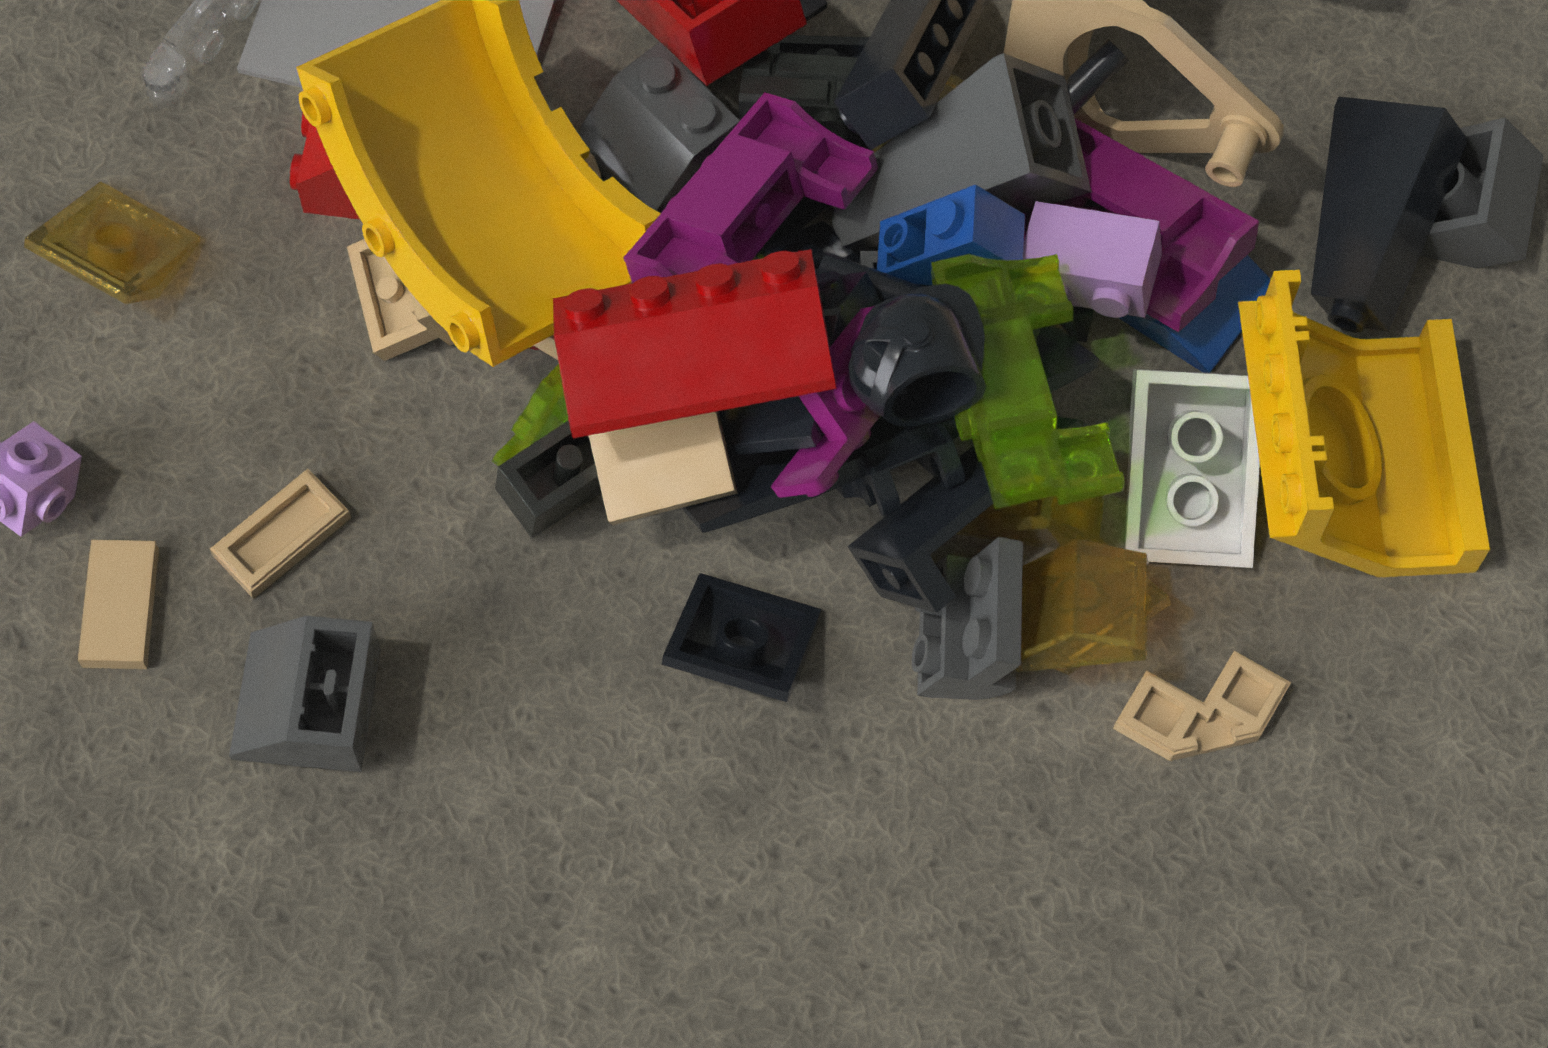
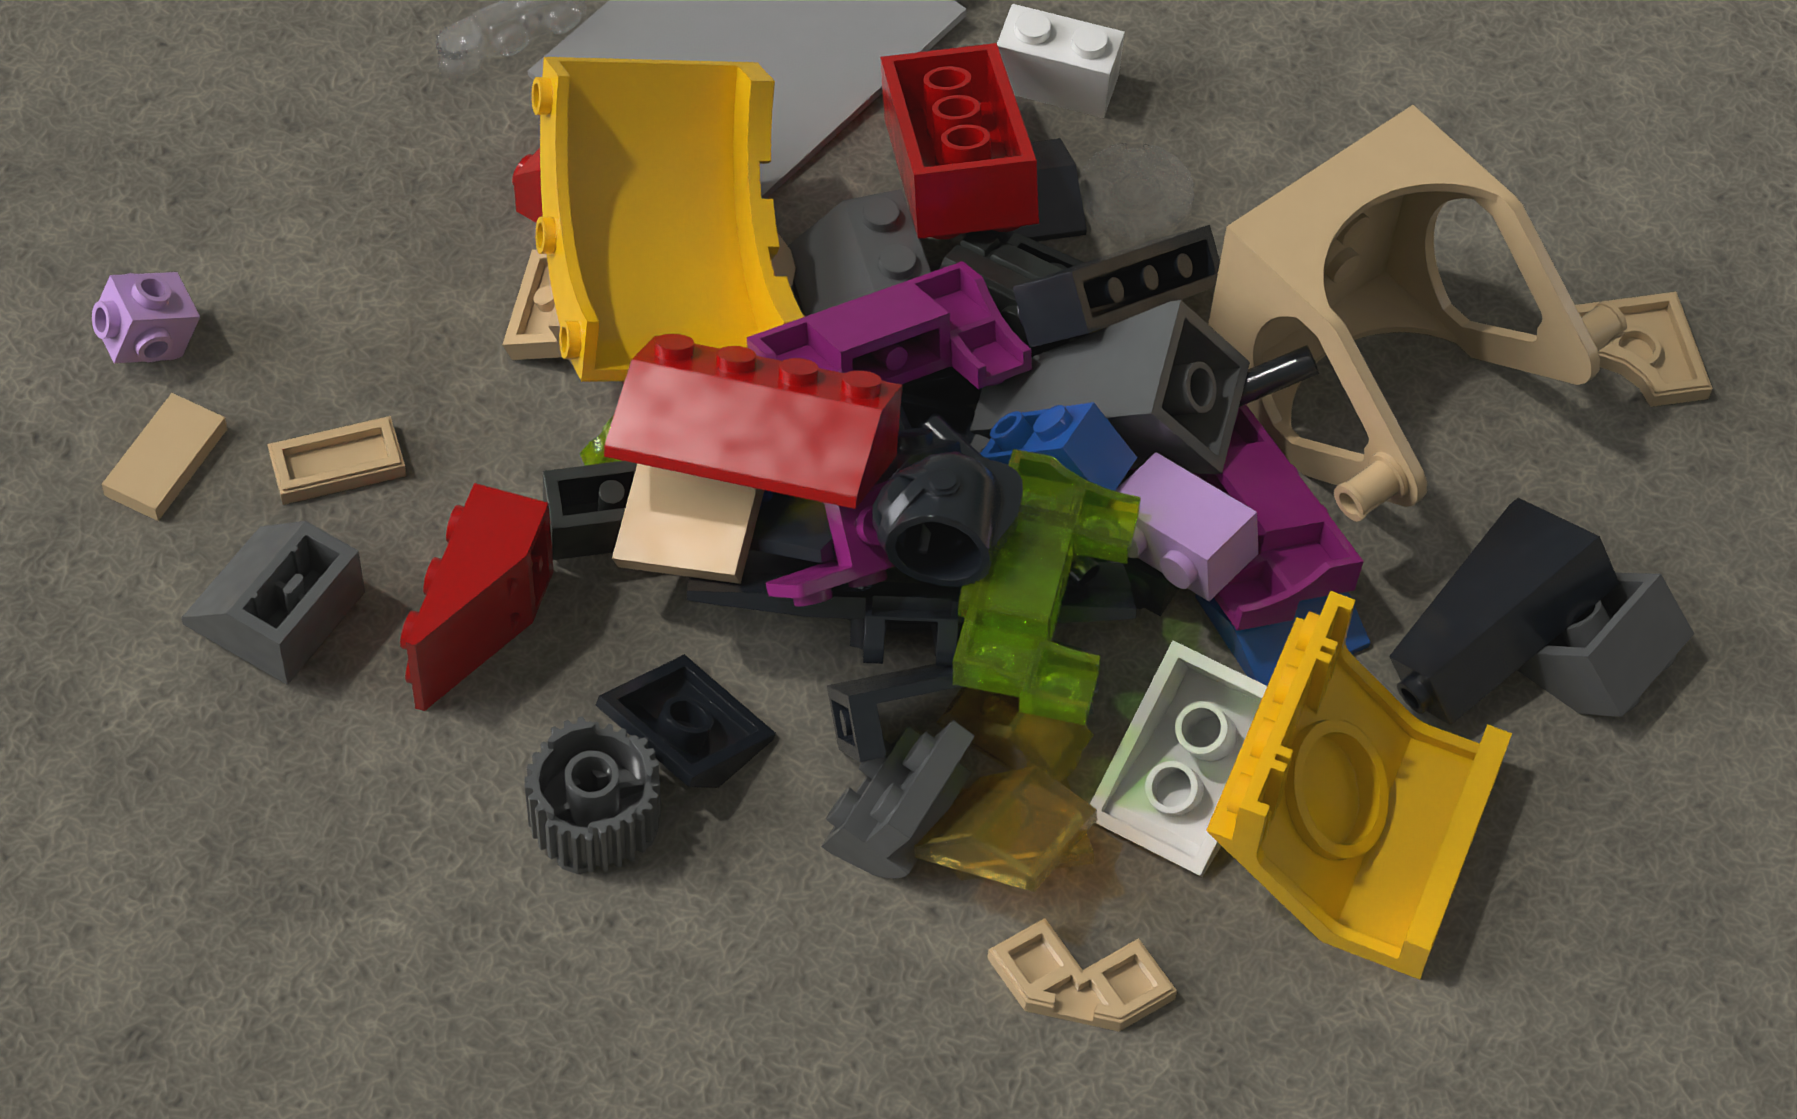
camera: 25 degrees right, 10 degrees down
(114, 244) = (335, 166): clear yellow slope -> none
(494, 601) = (479, 590): none -> red slope
(701, 716) = (593, 796): none -> dark grey brick

